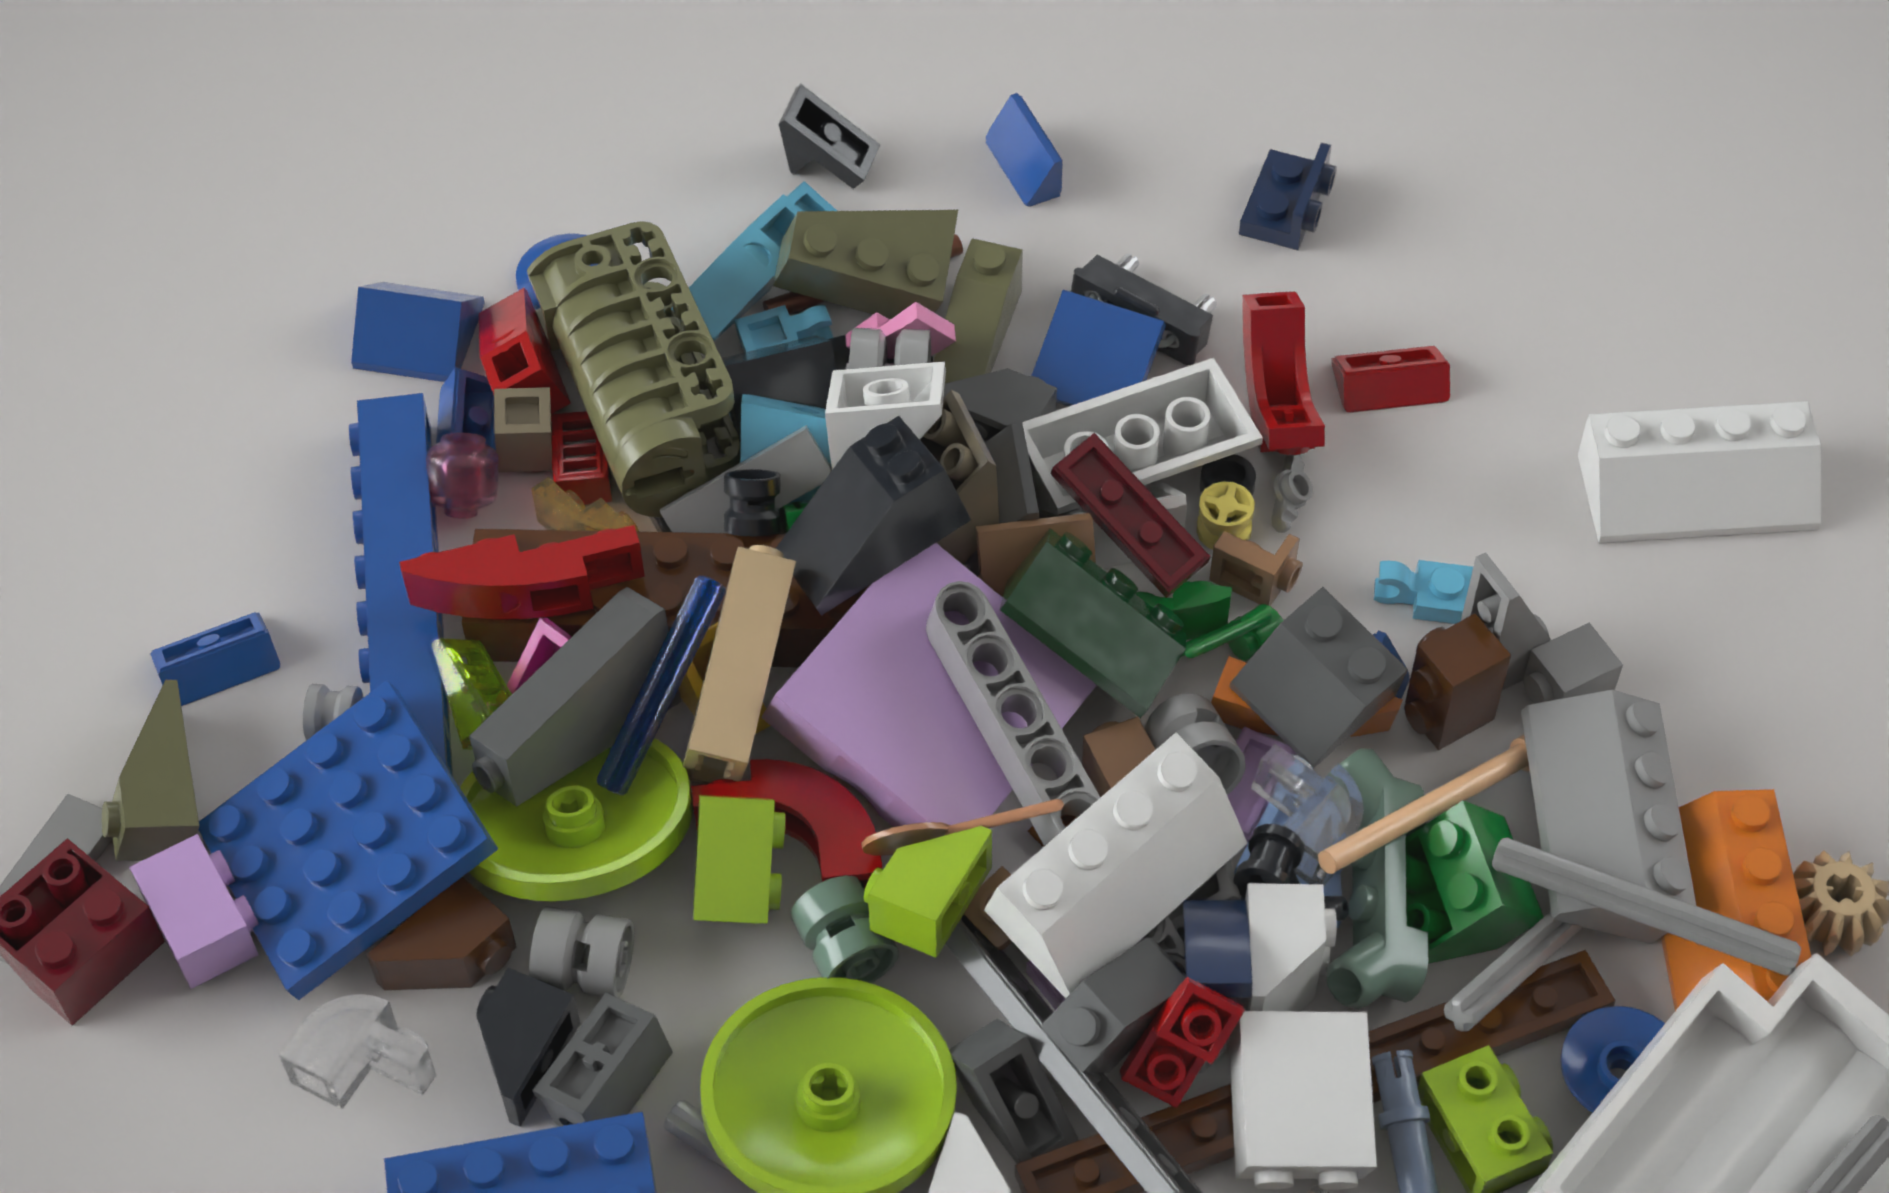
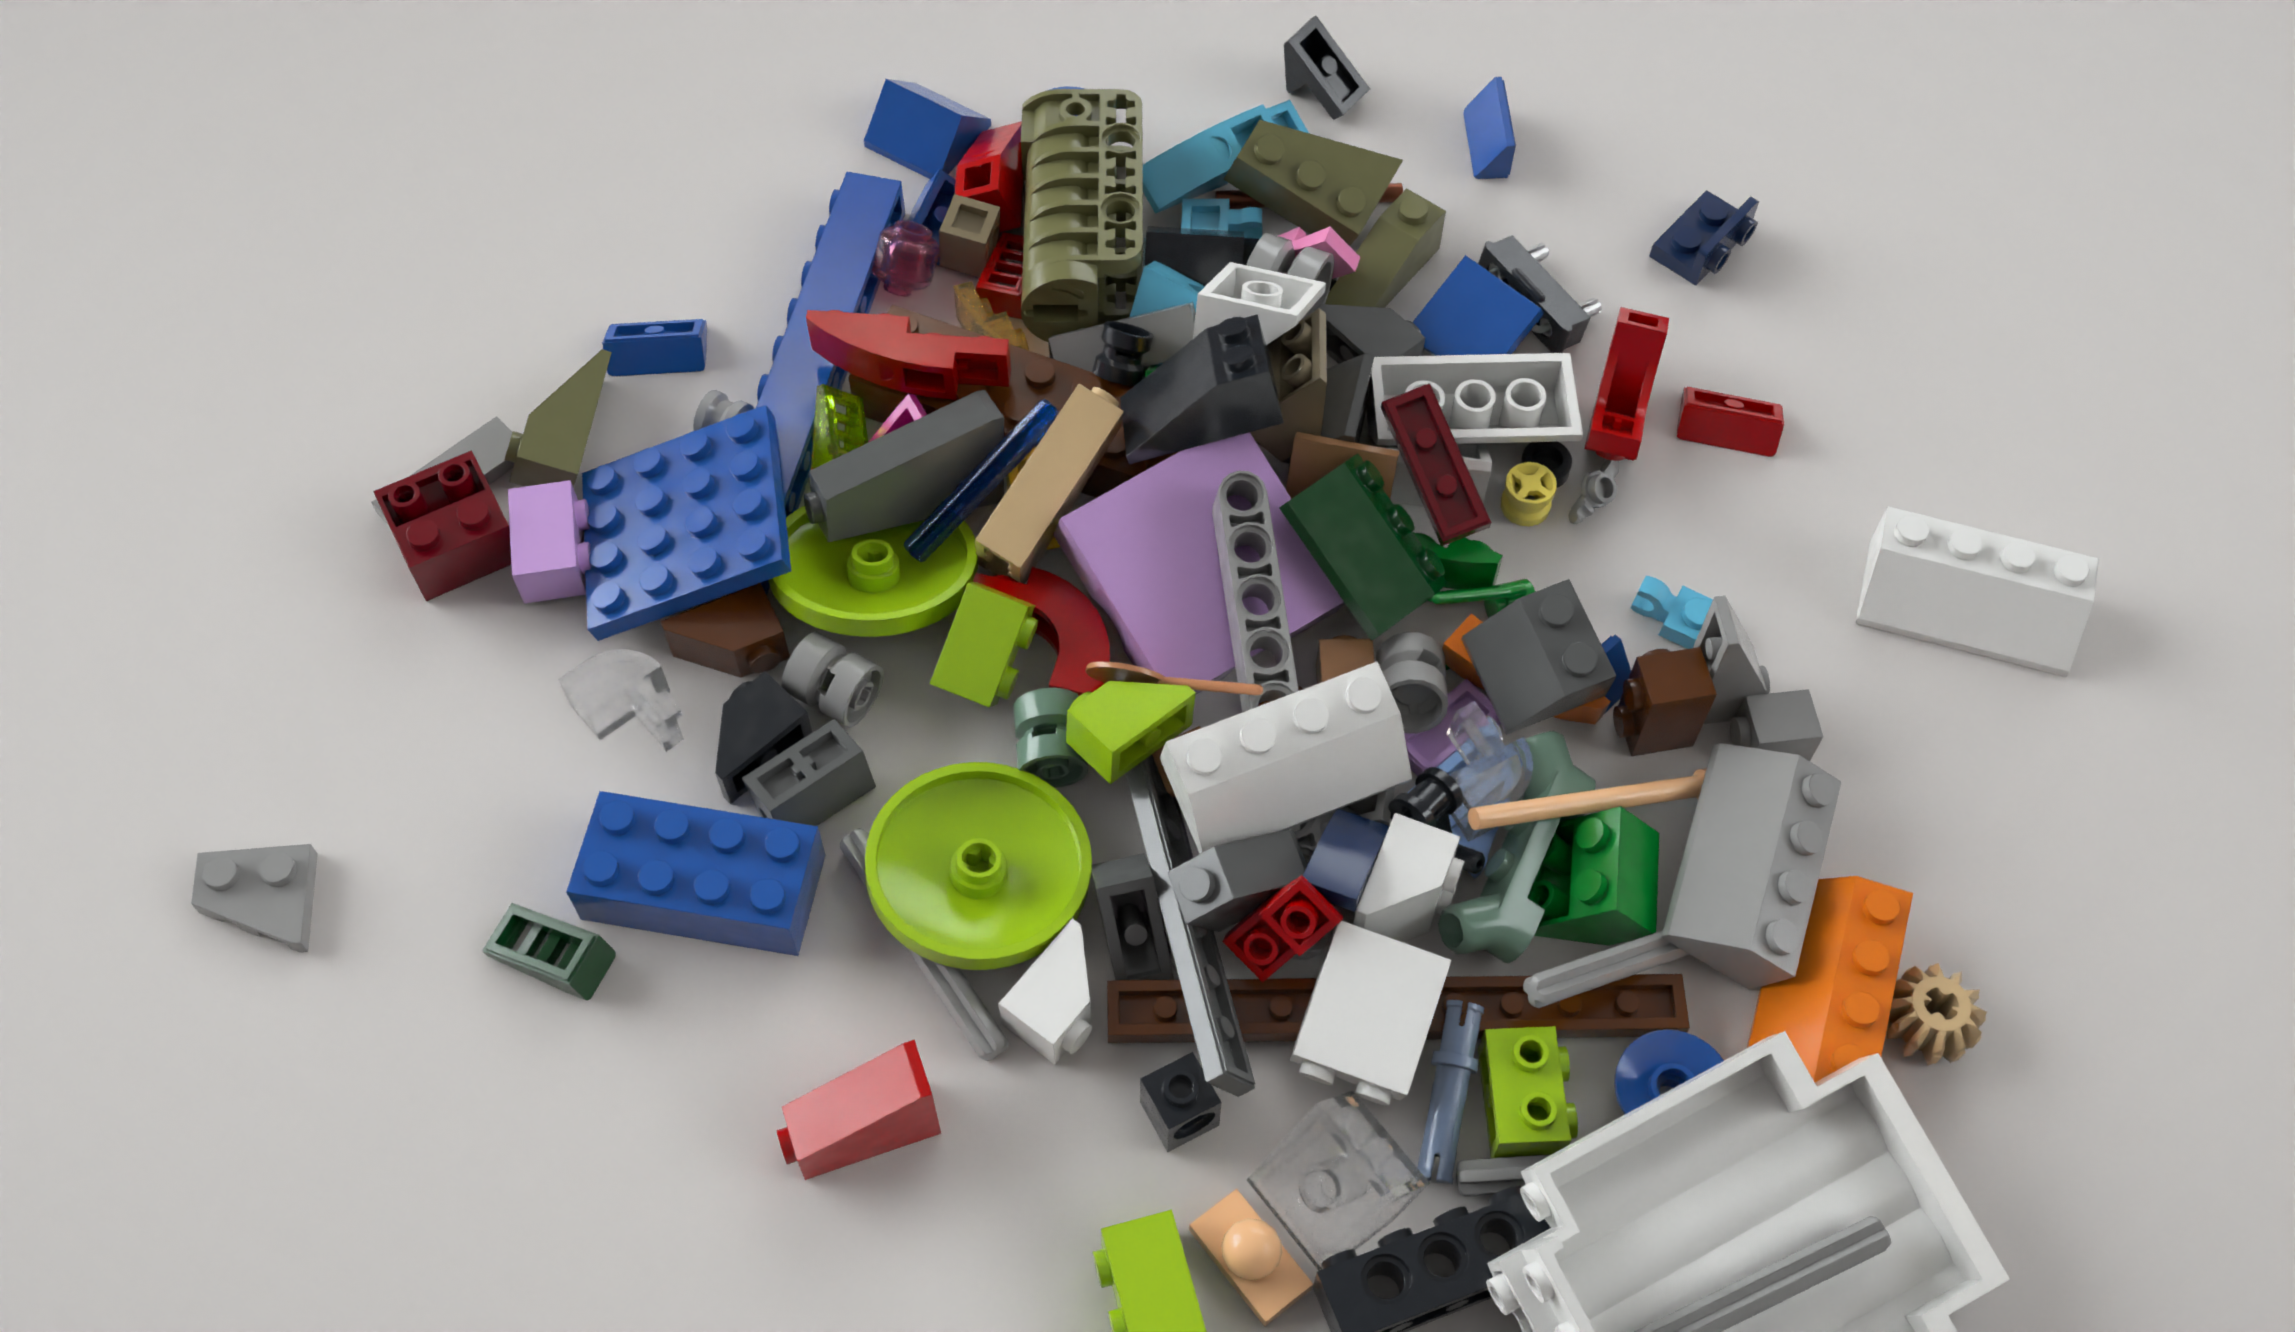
camera: 20 degrees right, 5 degrees up
(1255, 571) = (1530, 547): medium nougat bracket -> none
(1647, 906) = (1746, 957): light grey axle -> none

